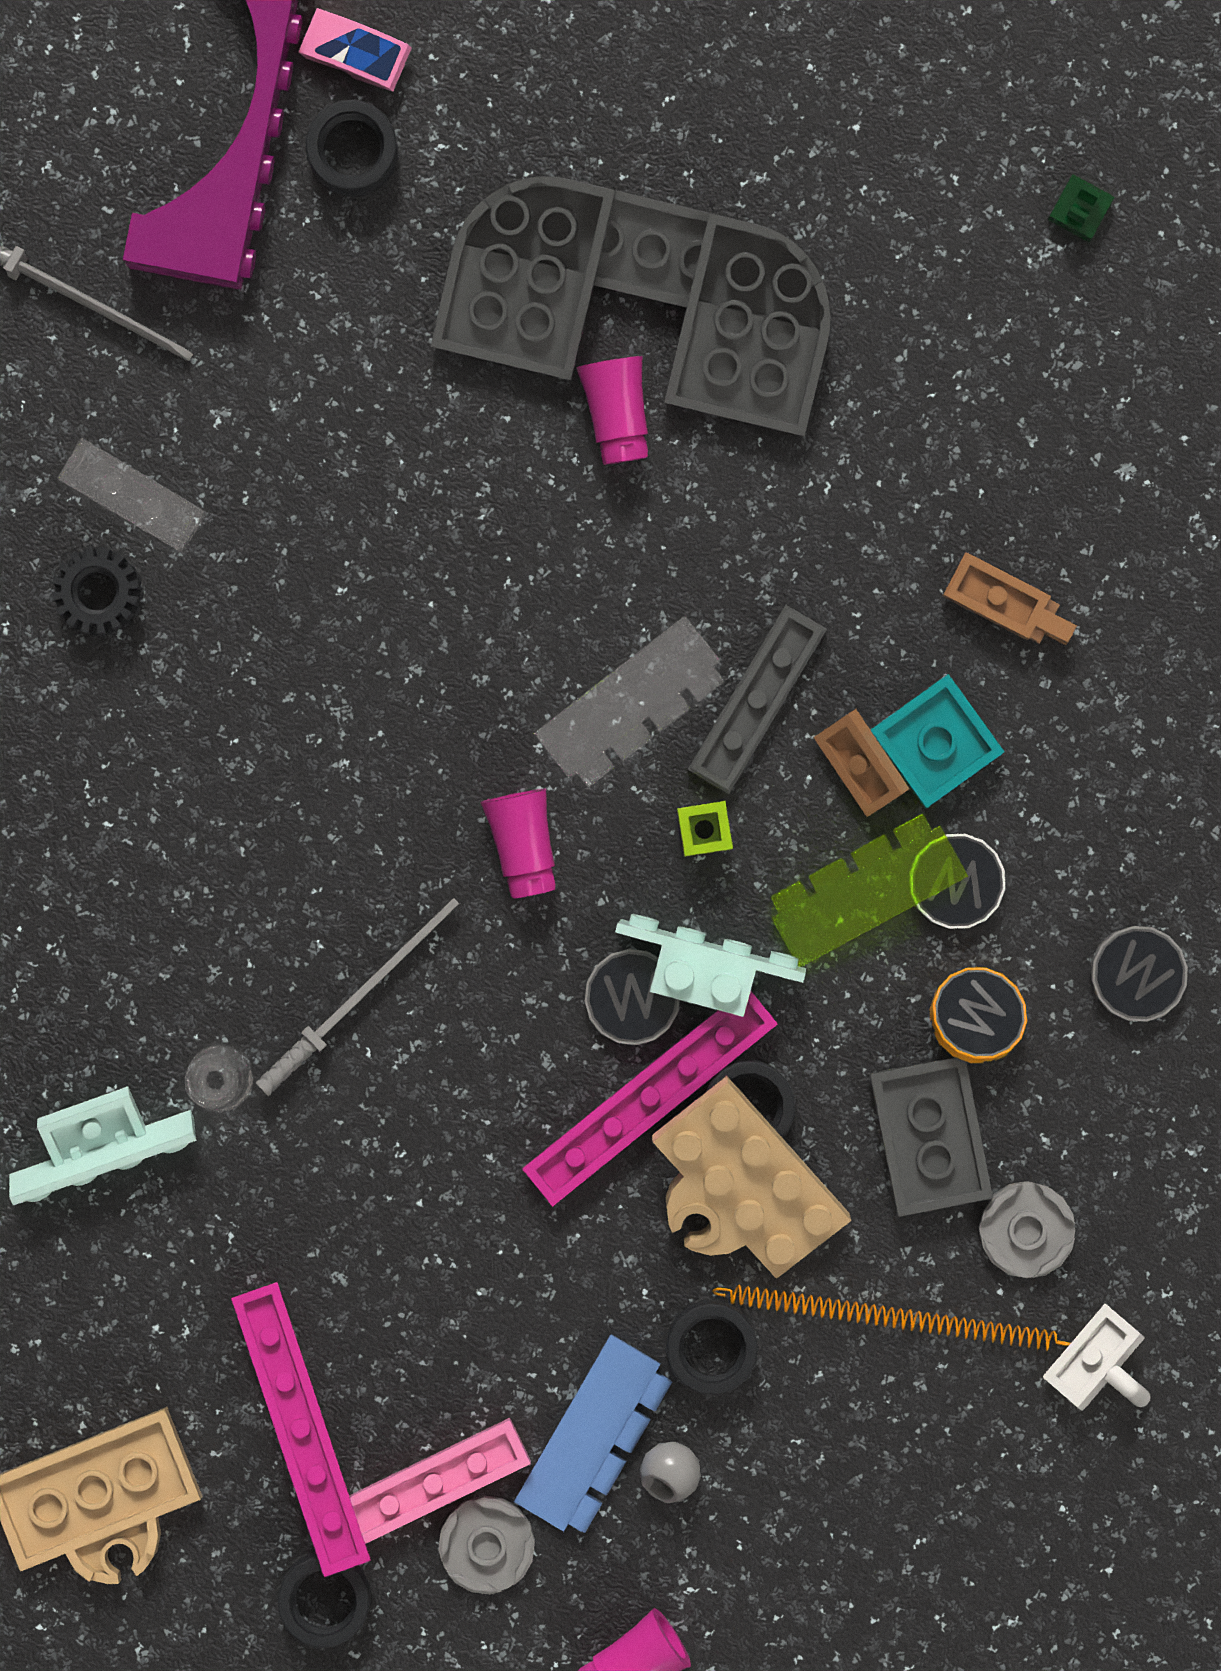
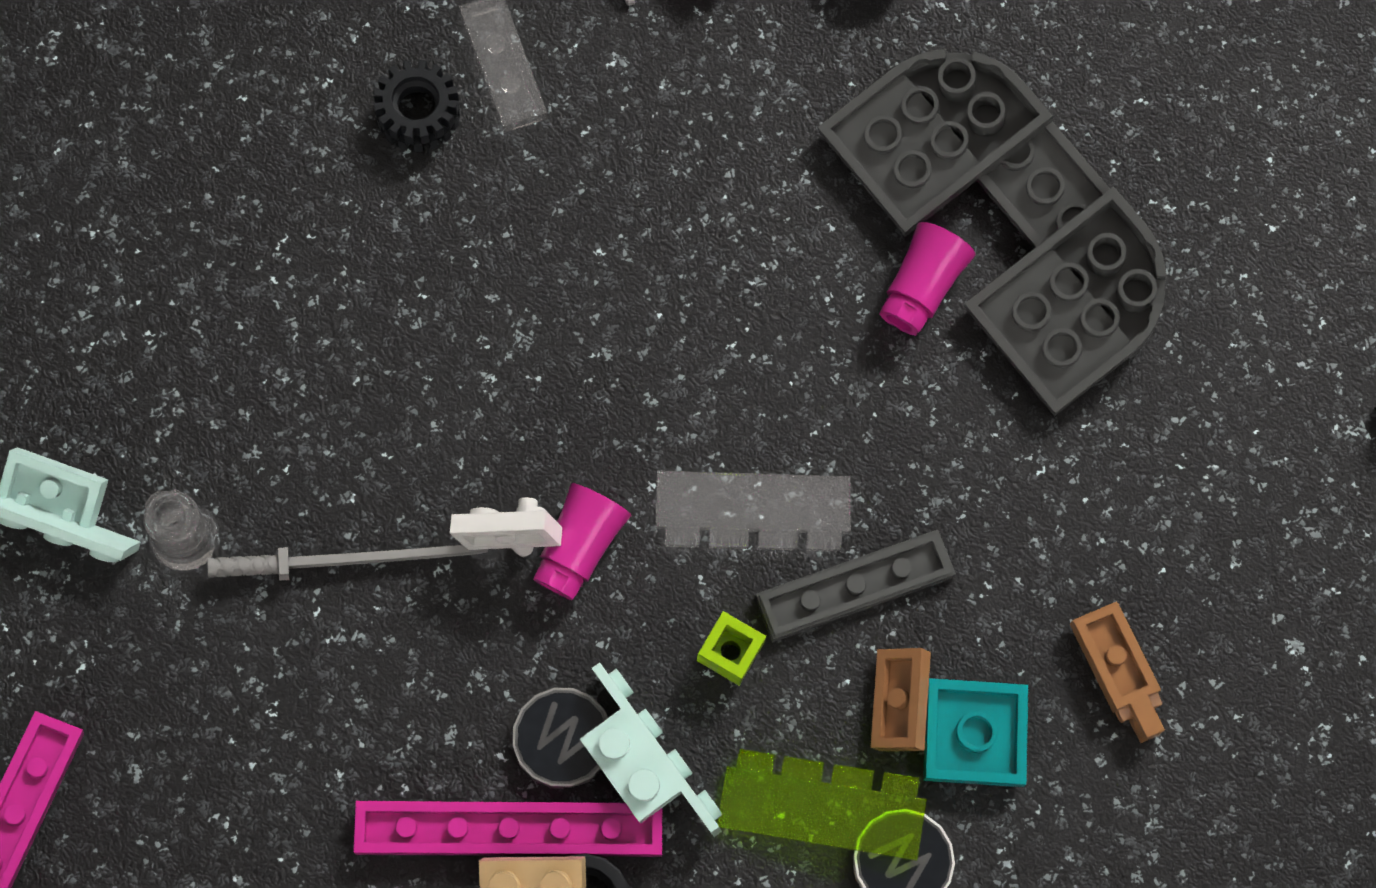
camera: 35 degrees right, 15 degrees down
(479, 869) = (517, 530): none -> white plate

